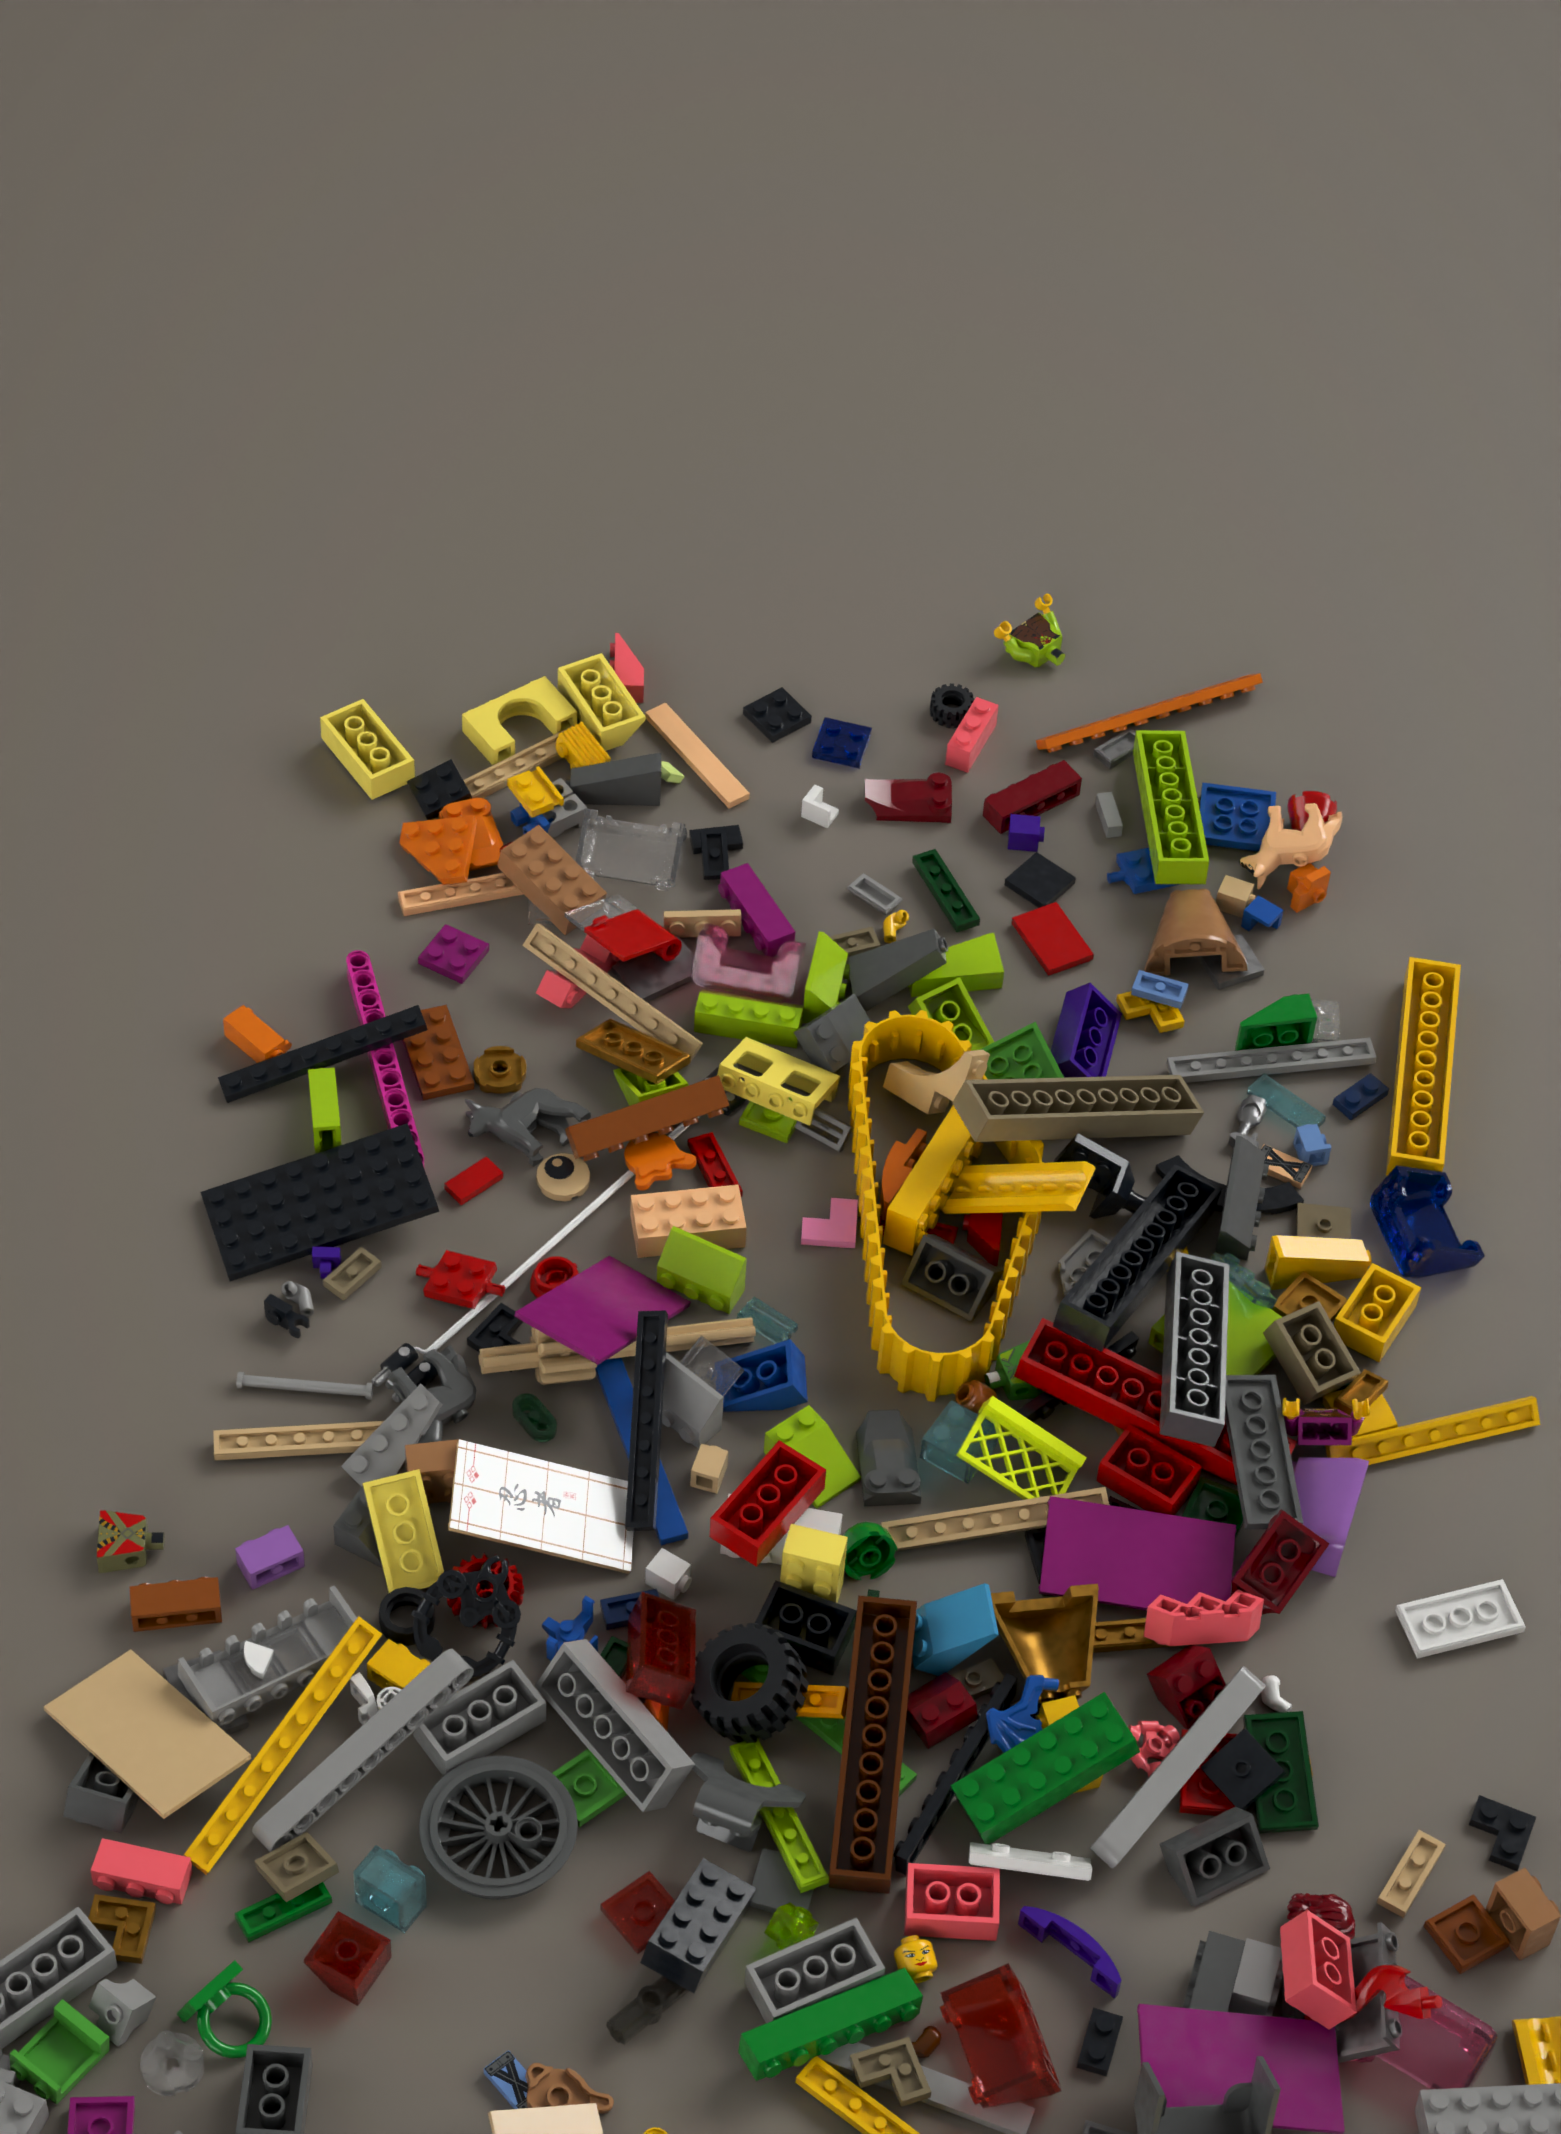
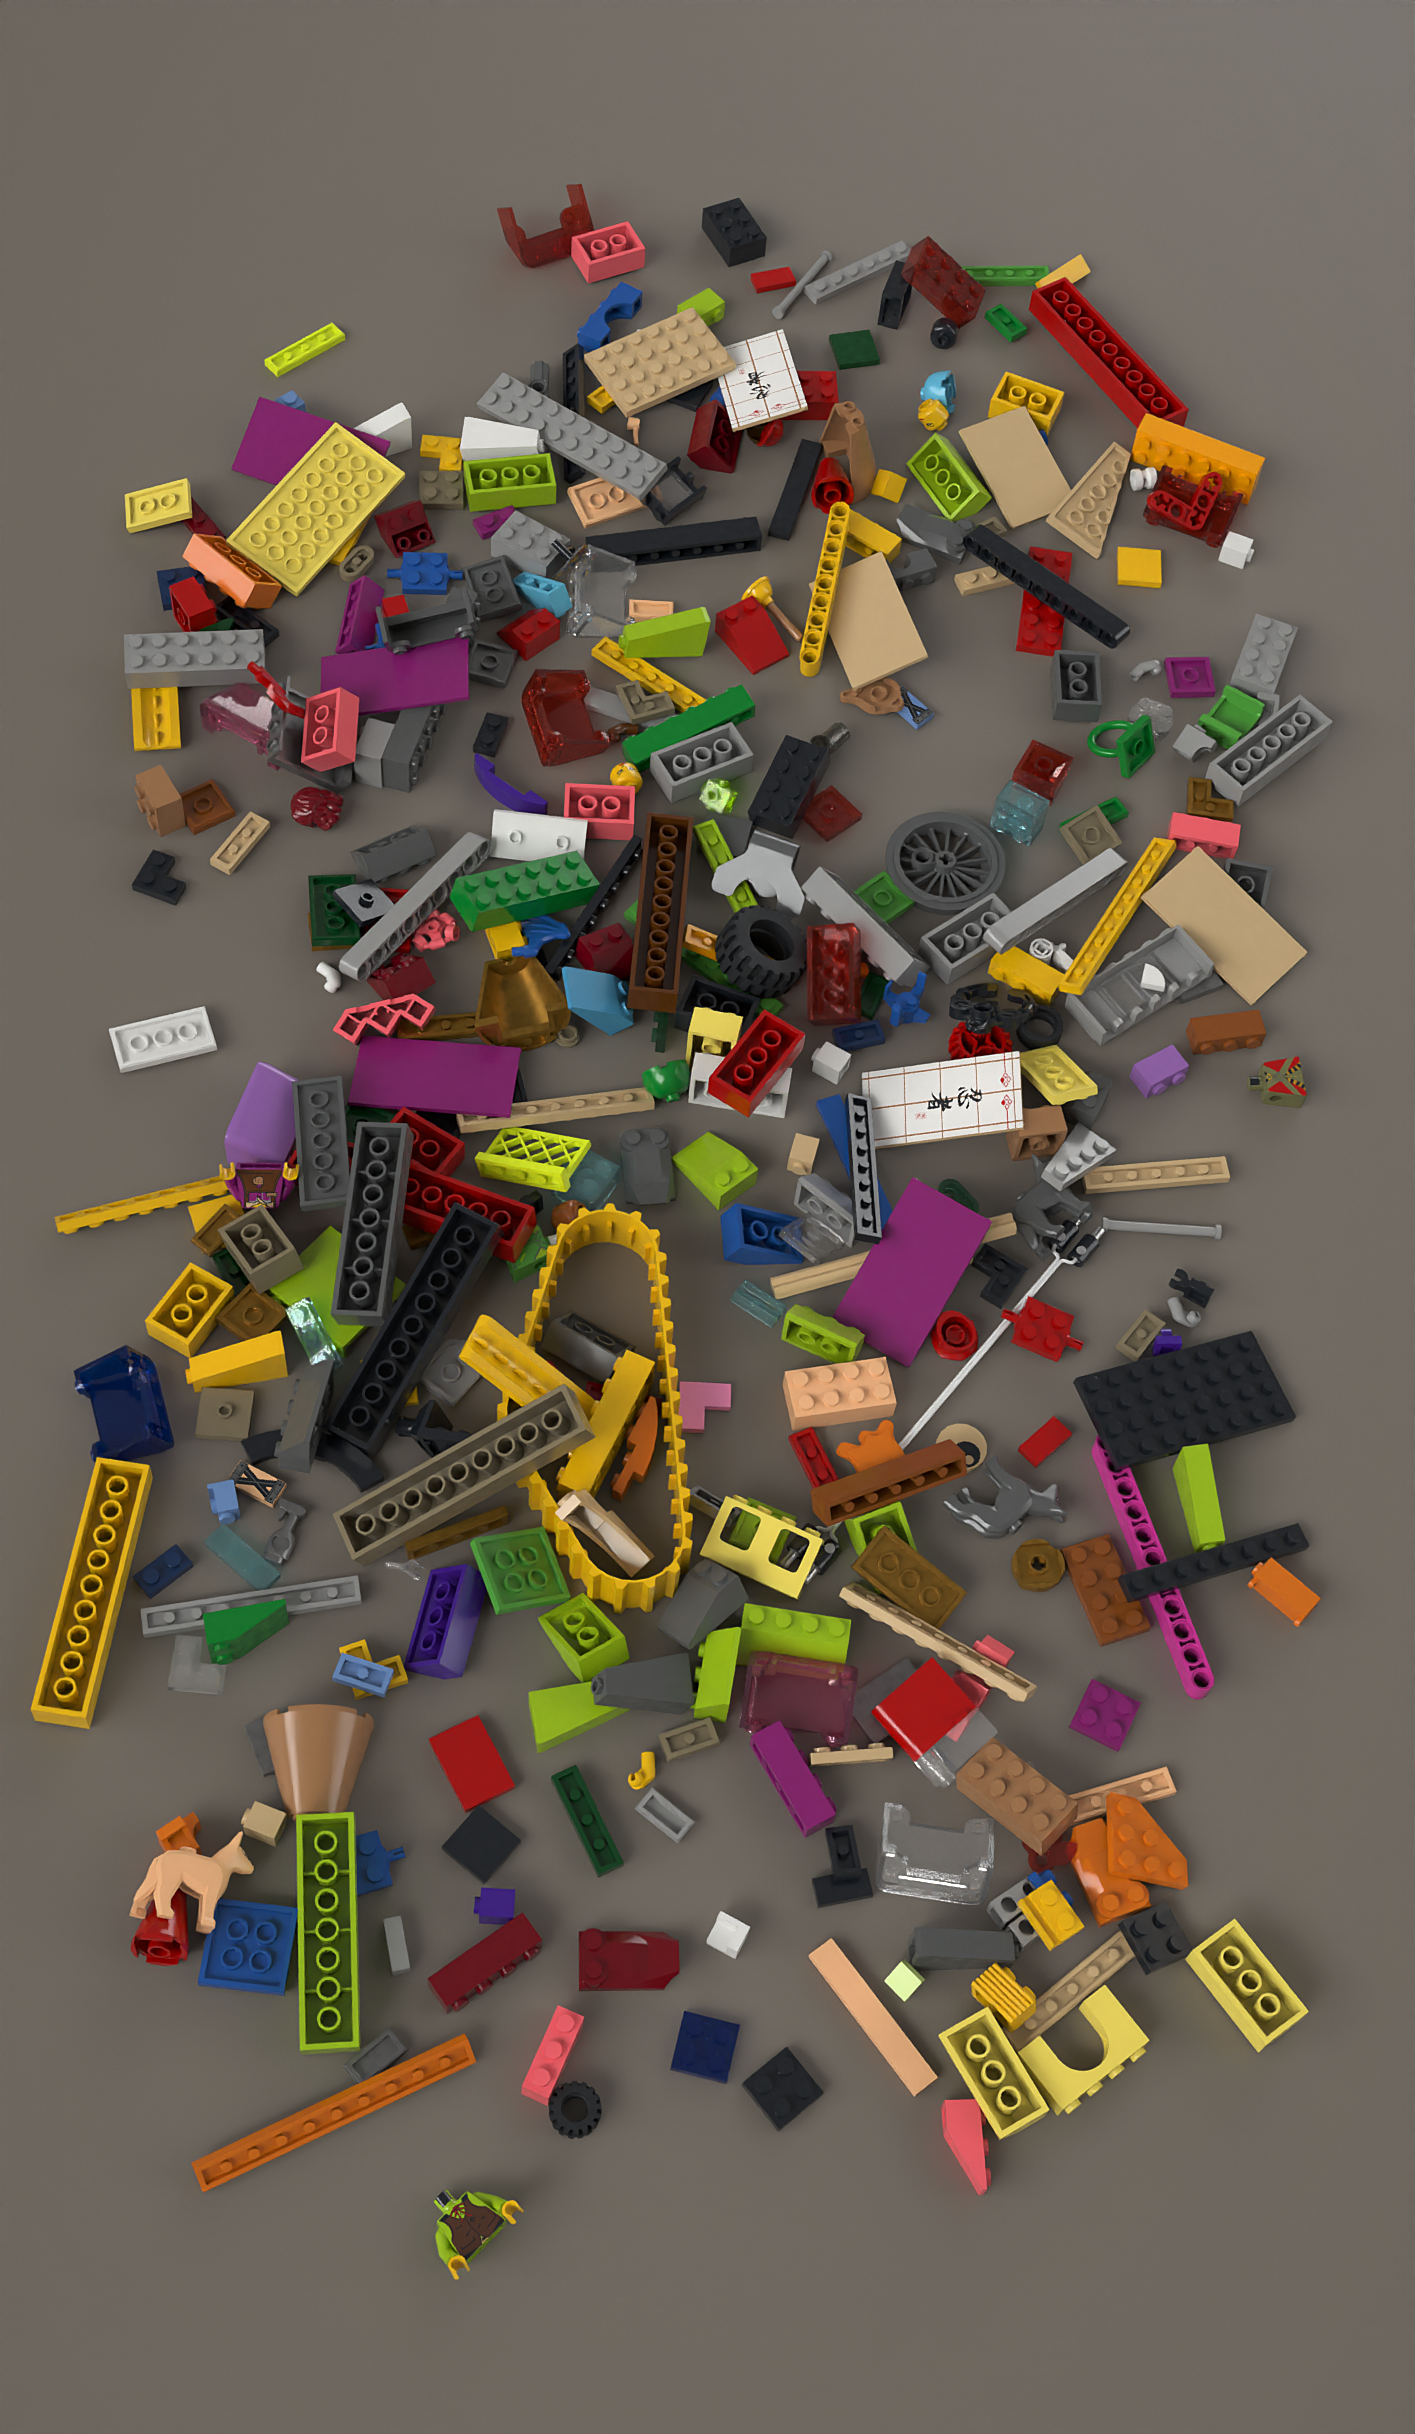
camera: 175 degrees right, 10 degrees up
(1263, 912) = (237, 1793): blue panel -> none
(1279, 1562) = (313, 1053): dark red slope -> none

